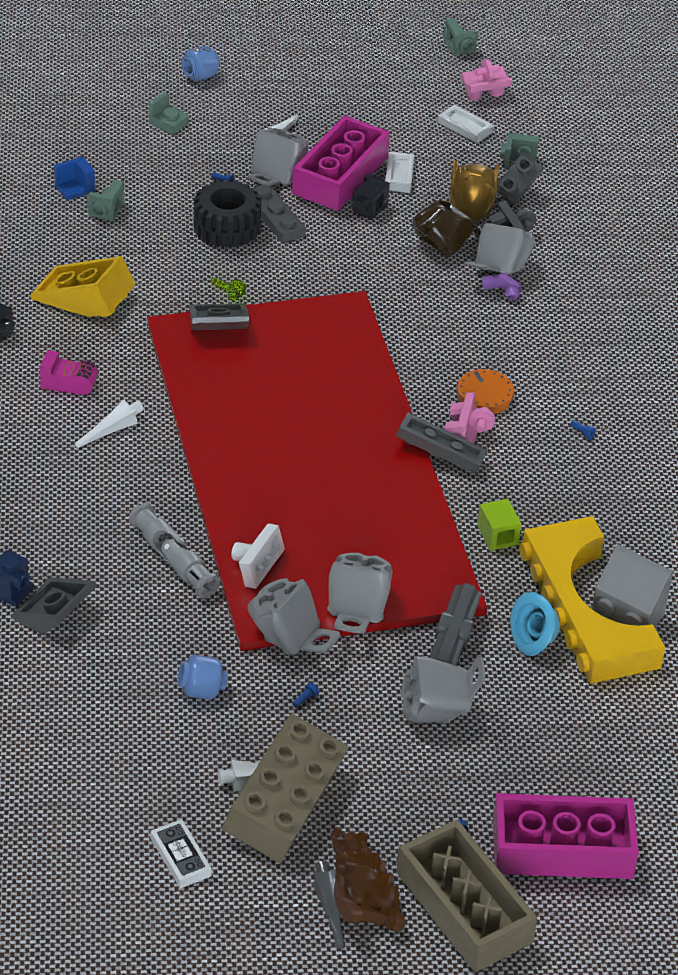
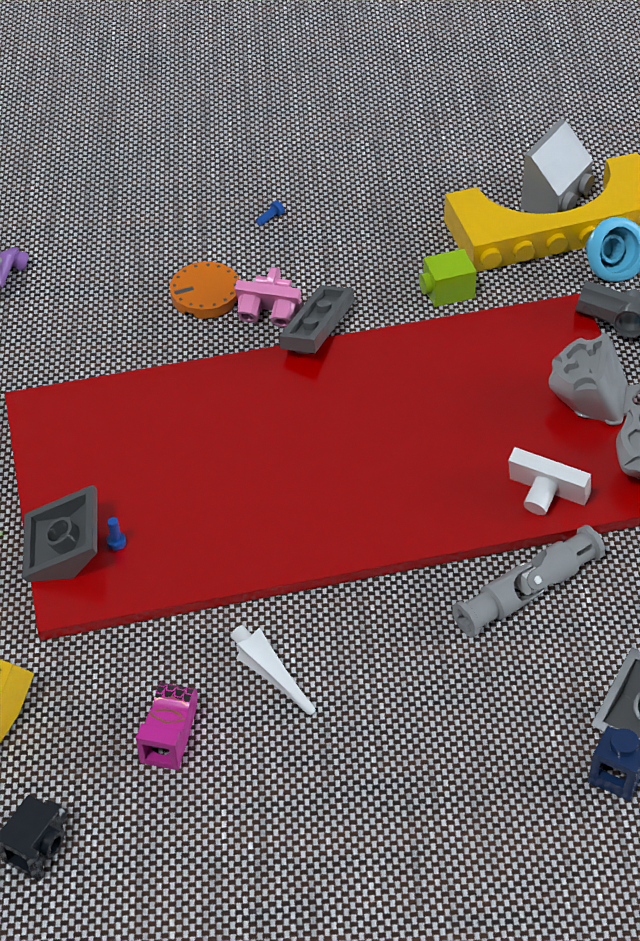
camera: 85 degrees left, 5 degrees up
(220, 346) = (116, 539): none -> blue piece

